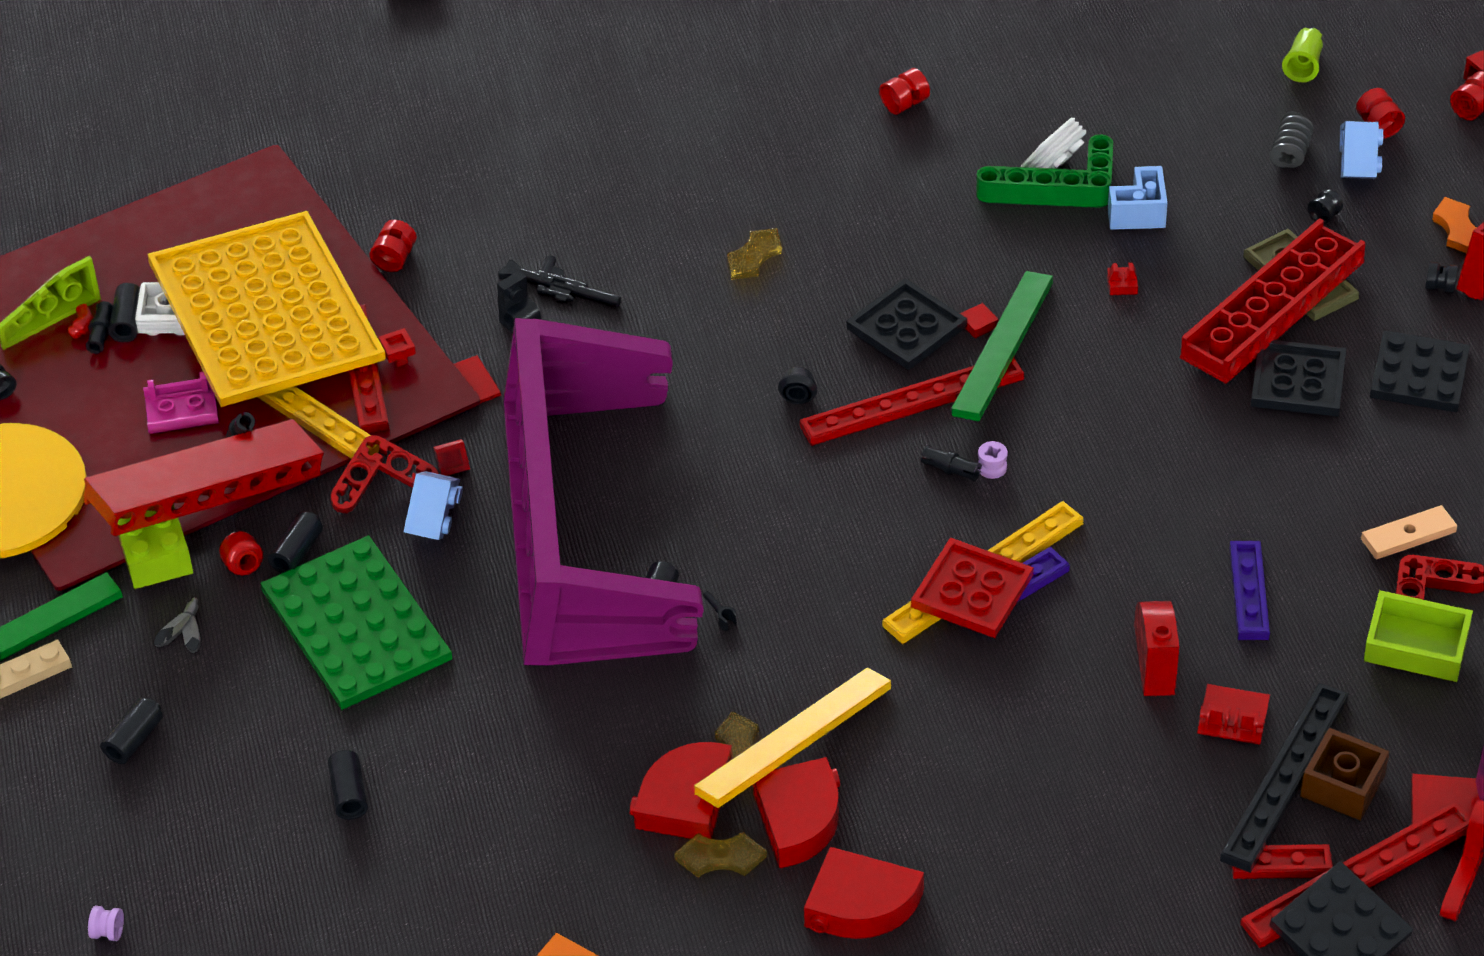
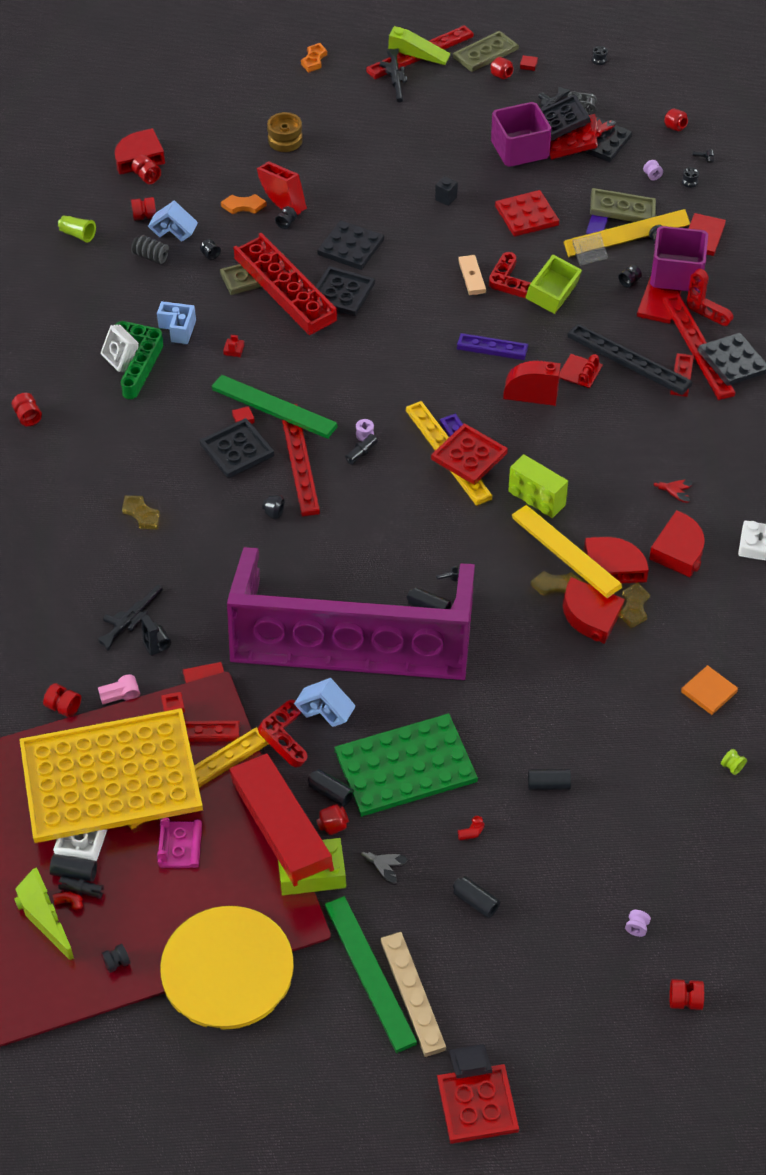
camera: 80 degrees left, 5 degrees up
(241, 424) = (229, 799): black pin -> none
(253, 716) = (474, 829): none -> red arm
(425, 300) = (125, 689): none -> bright pink piece
(451, 457) = (279, 691): red tile -> none
(922, 680) = (538, 486): none -> lime piece
(998, 877) = (675, 489): none -> red piece
(1344, 773) = (638, 332): reddish brown brick -> none

